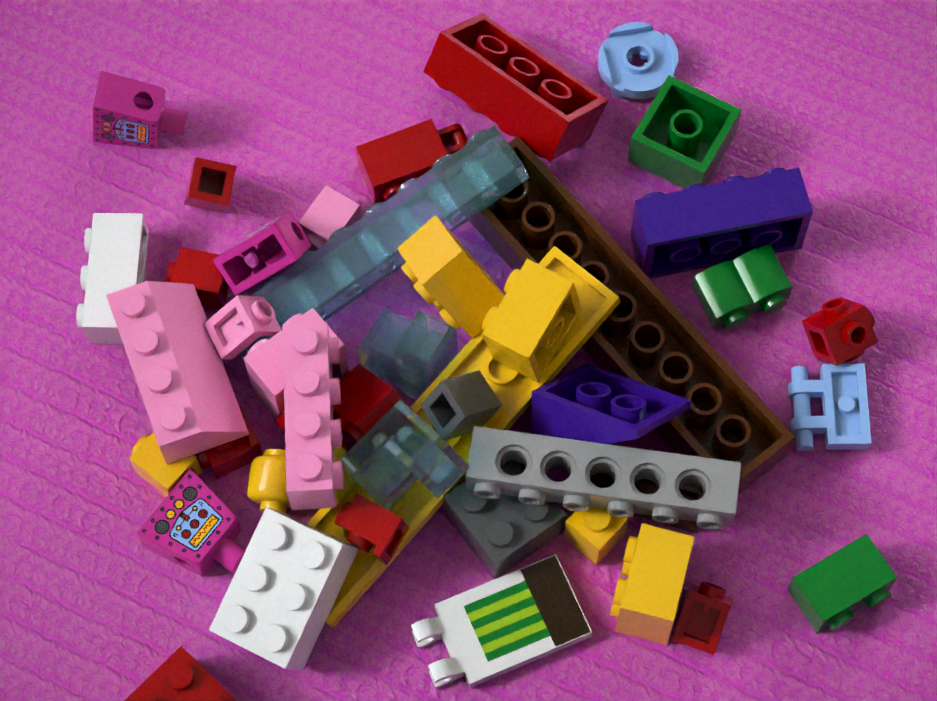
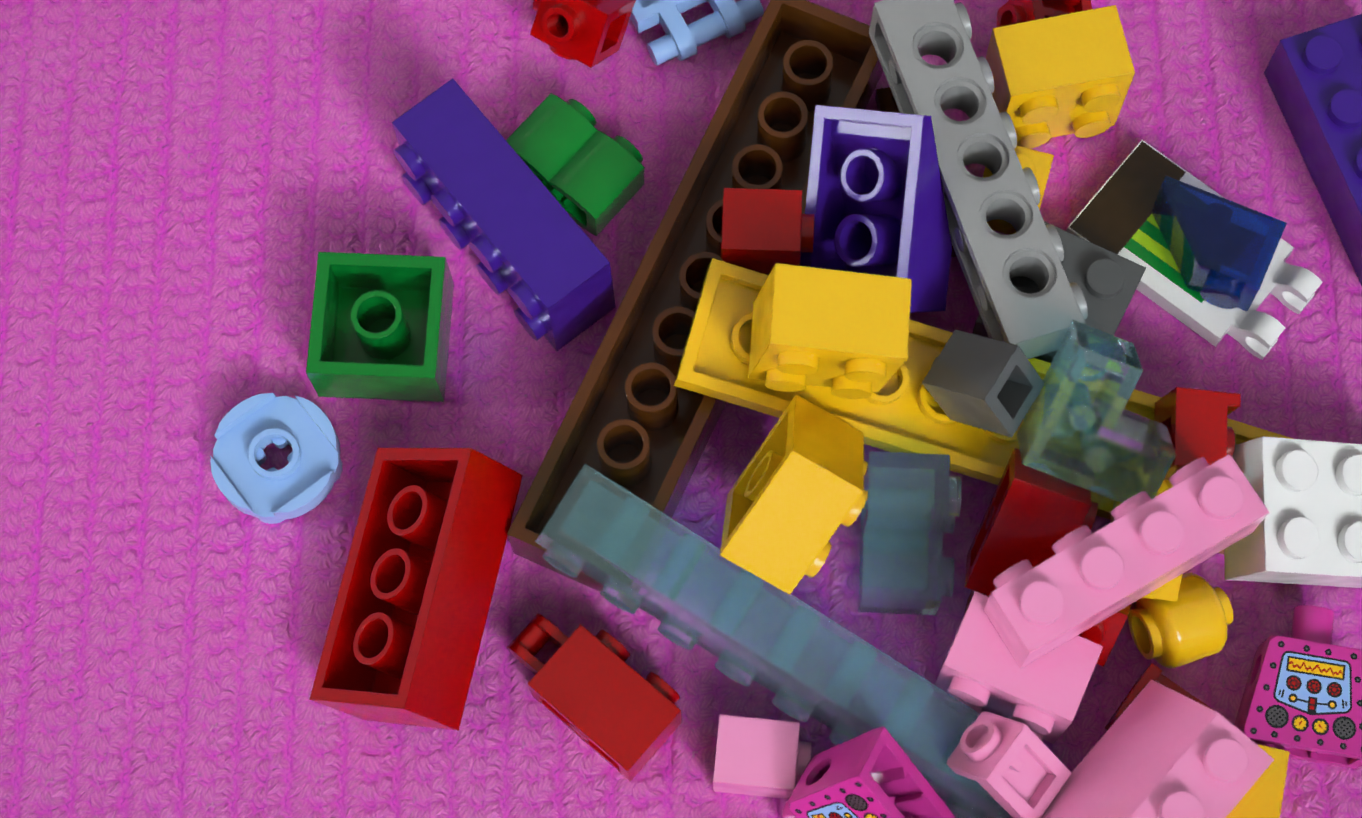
camera: 115 degrees left, 5 degrees up
(490, 622) = (1216, 242): none -> clear blue slope
(625, 338) = (764, 228): none -> red brick

